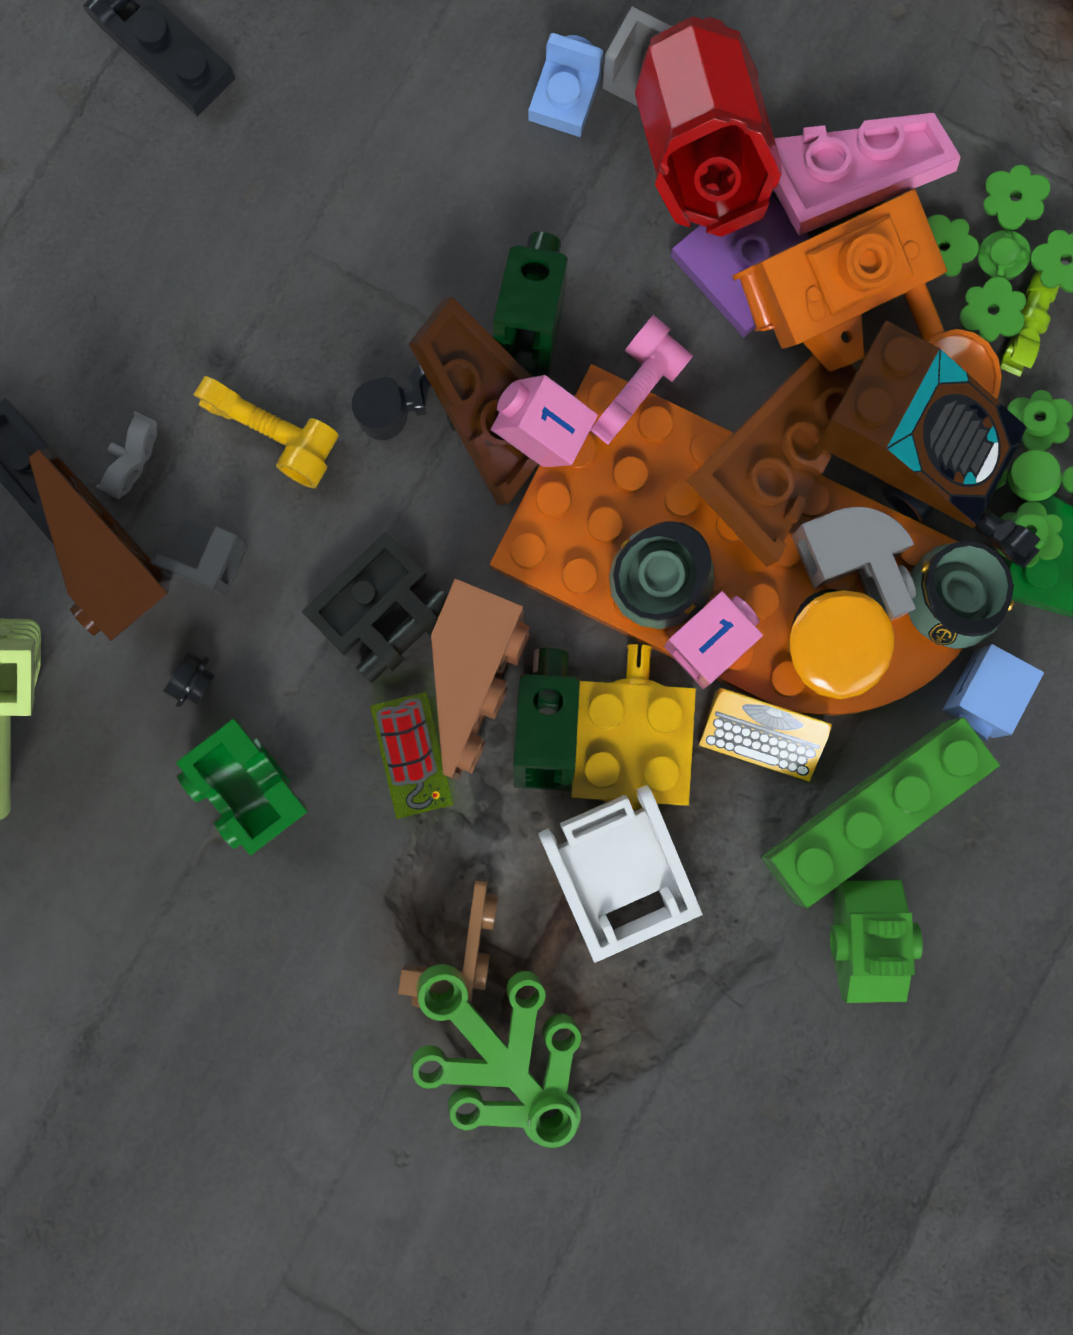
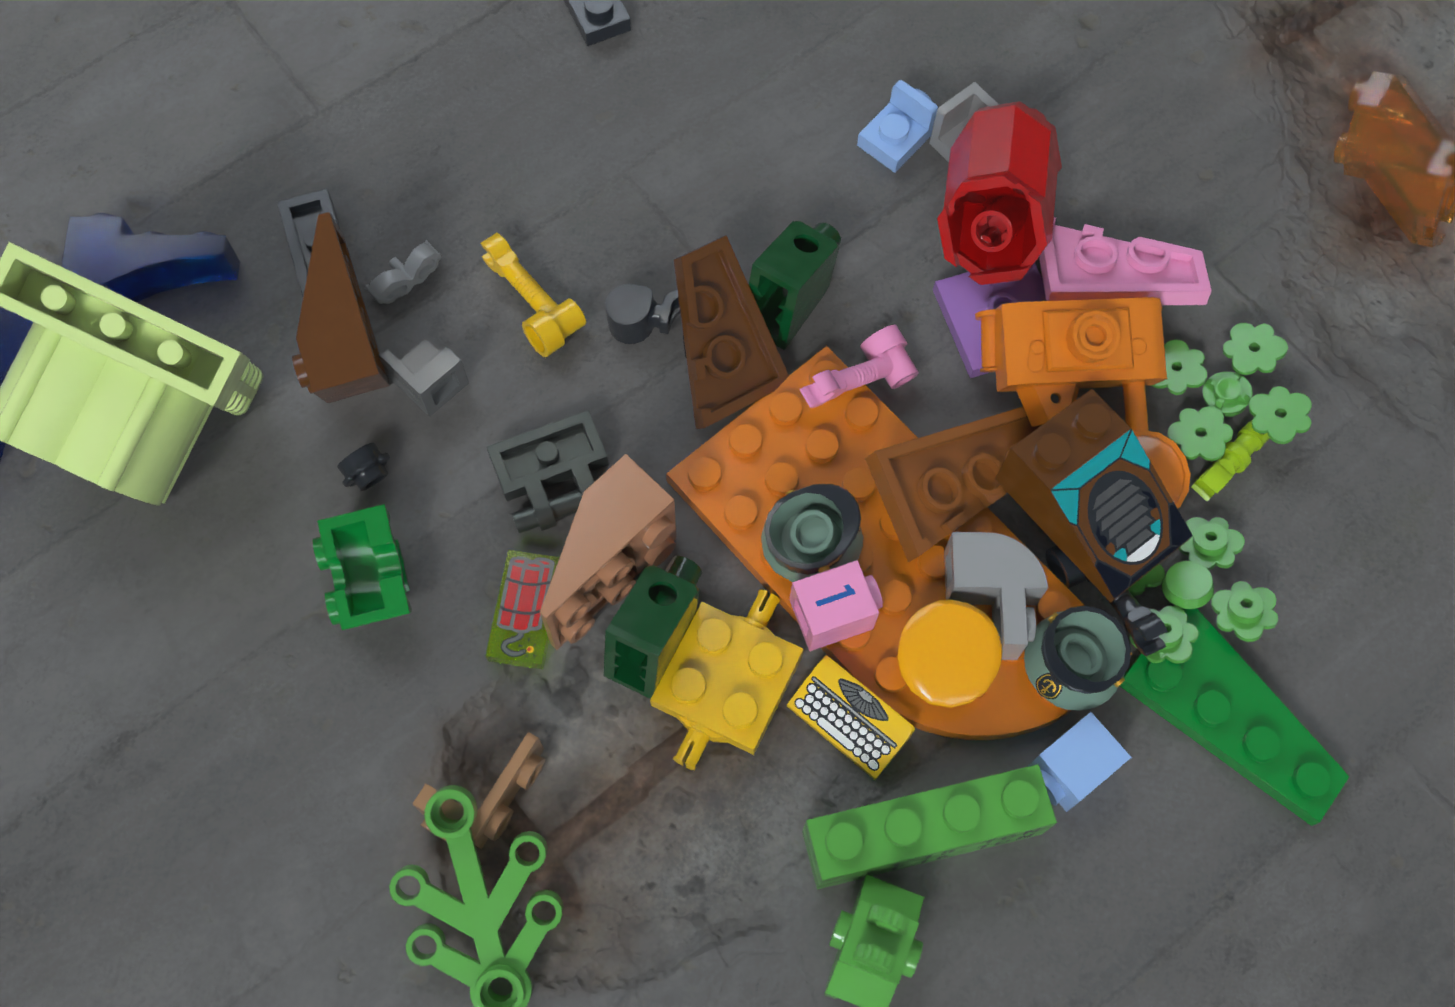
camera: 20 degrees right, 15 degrees down
(543, 421) = (762, 366): bright pink brick -> none
(615, 860) = (663, 774): white container -> none

